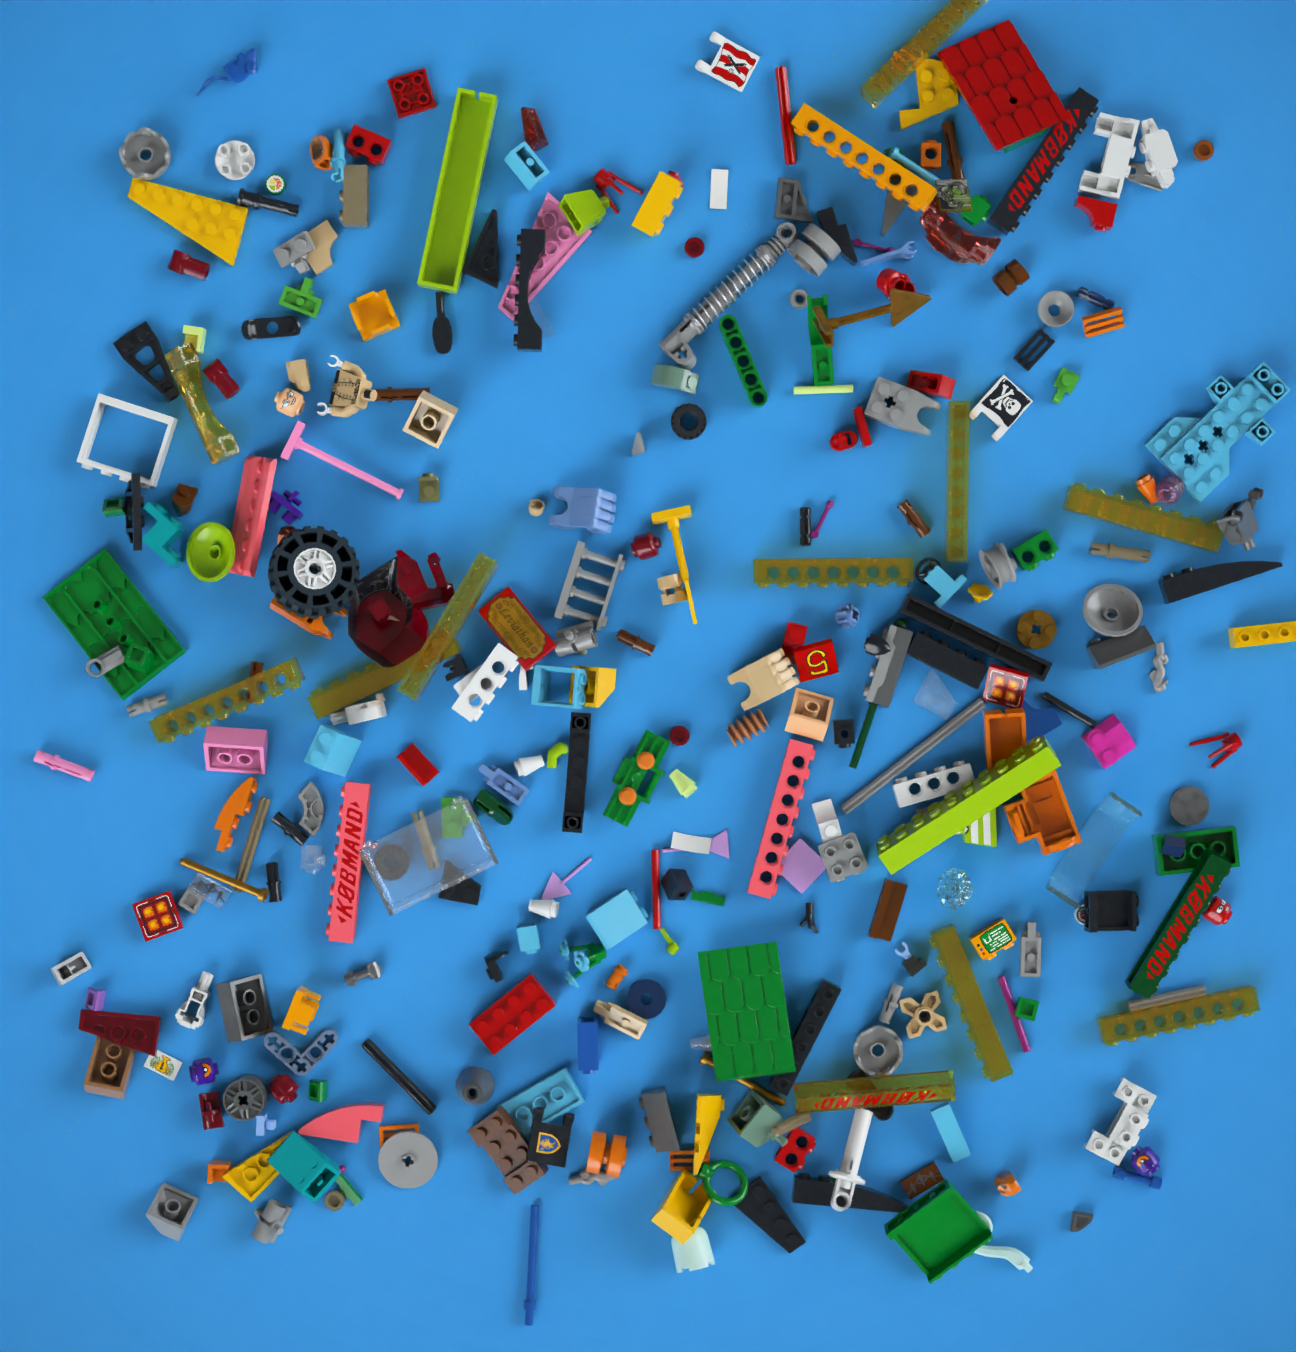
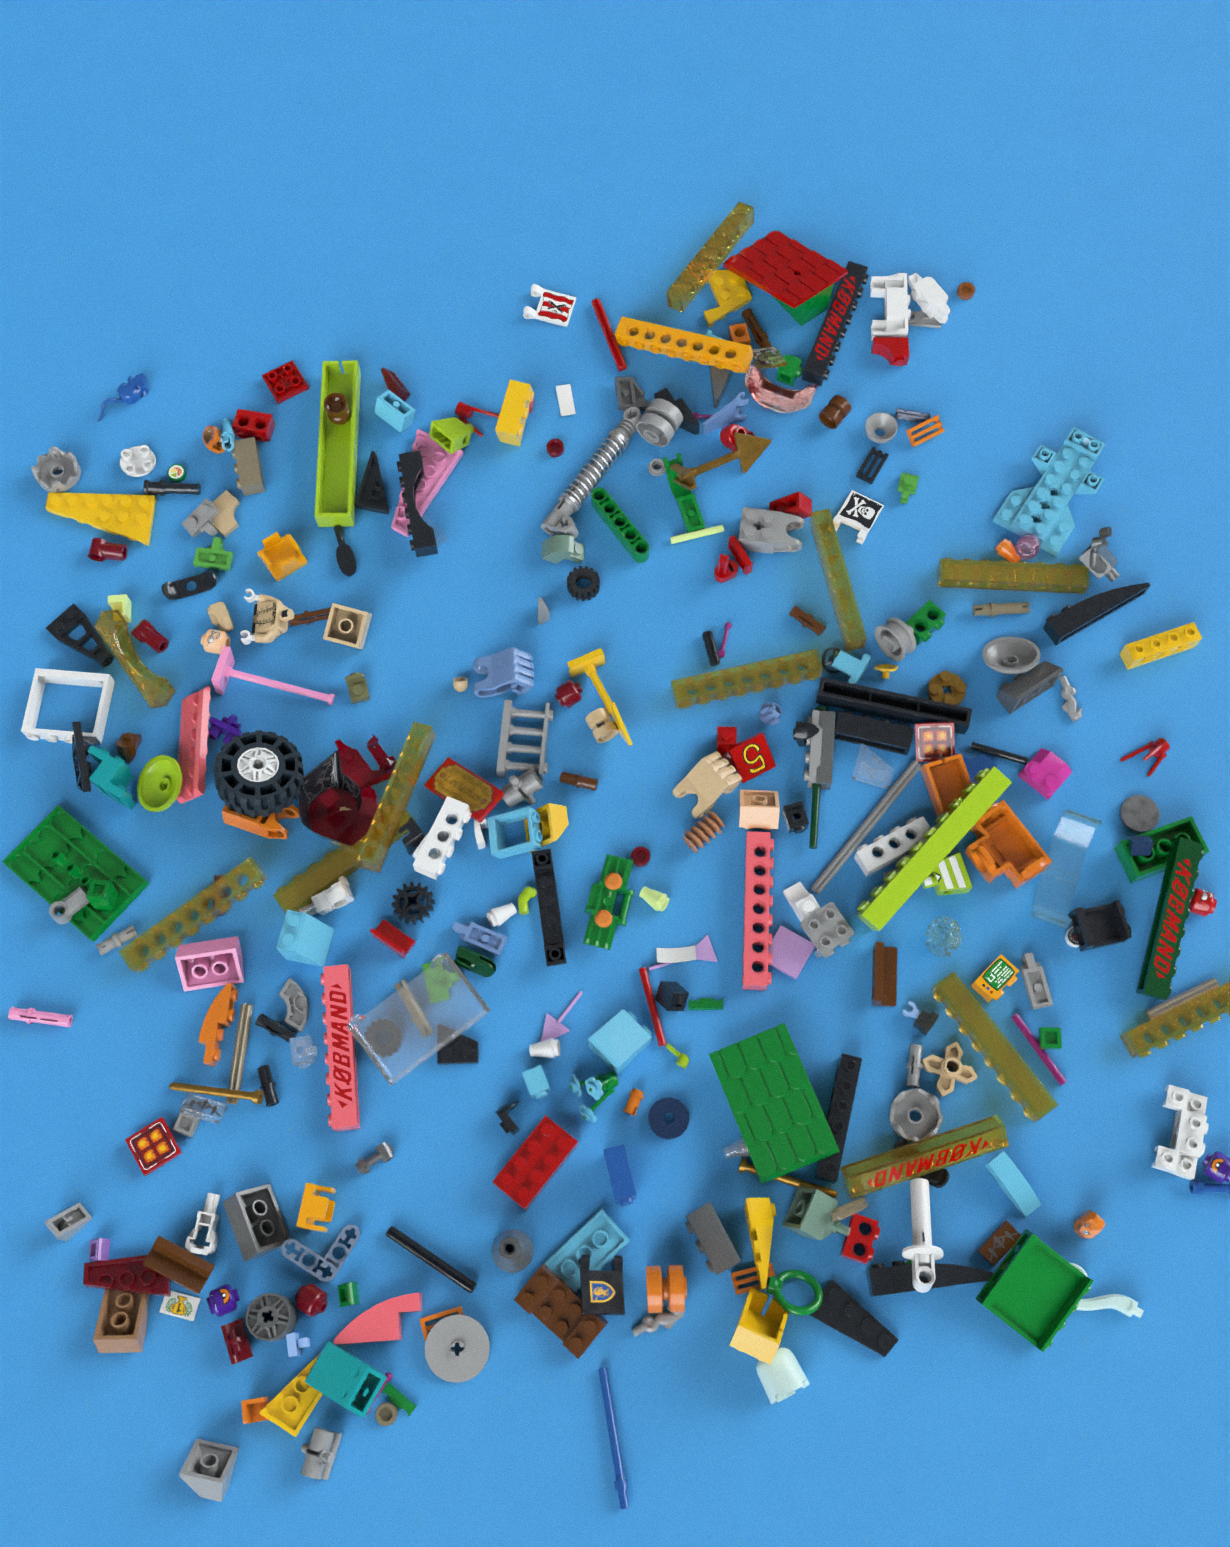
camera: 10 degrees left, 20 degrees down
(114, 507) = (63, 768): green slope -> none
(167, 1032) = (178, 1265): none -> reddish brown panel
(450, 741) = (418, 896): none -> black gear
(463, 156) = (337, 408): none -> reddish brown wheel
(621, 1019) = (648, 1144): tan hinge -> none
(809, 917) = (810, 999): black bar -> none
(1080, 1220) = (1174, 1248): dark grey tile -> none

